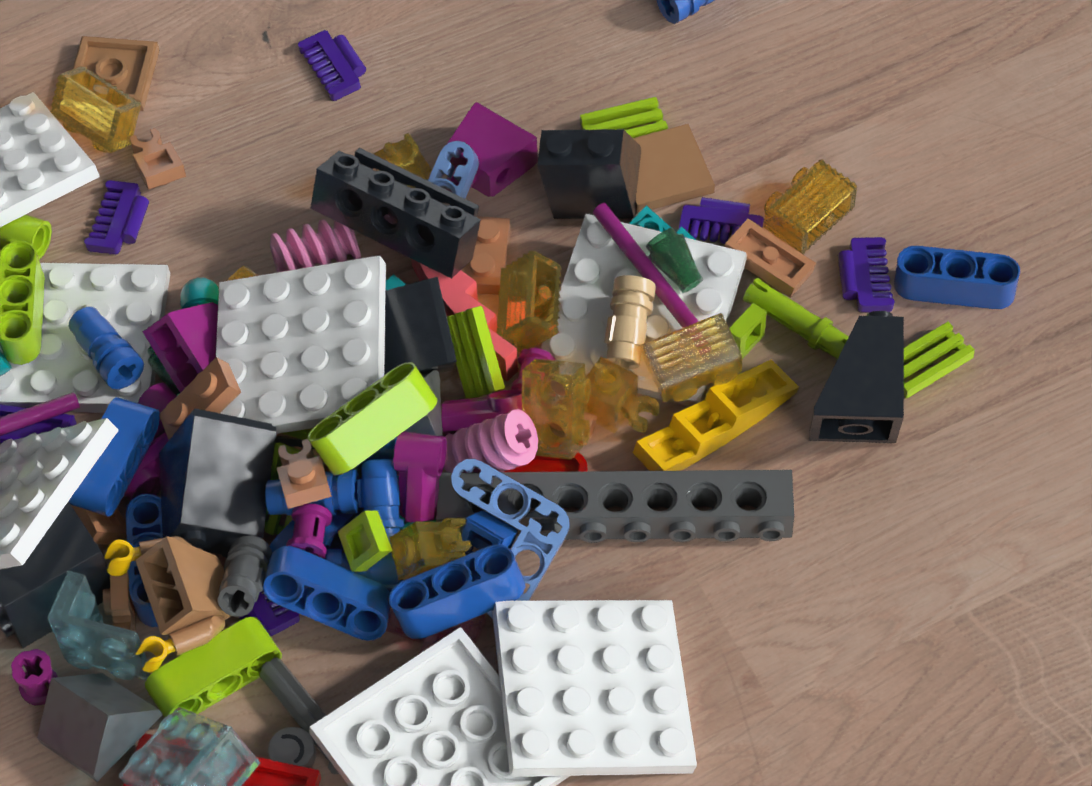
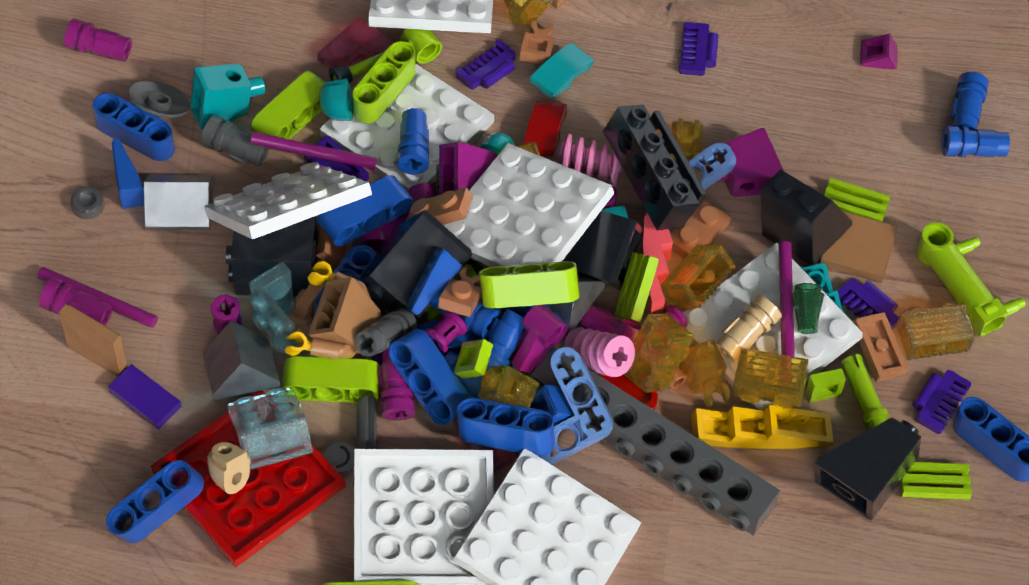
camera: 30 degrees right, 0 degrees up
(205, 173) = (560, 70): none -> teal slope
(235, 242) = (545, 126): none -> red slope
(256, 480) = (436, 275): none -> blue slope
(301, 635) = (397, 396): none -> magenta axle
(748, 122) = (961, 280): none -> lime piece

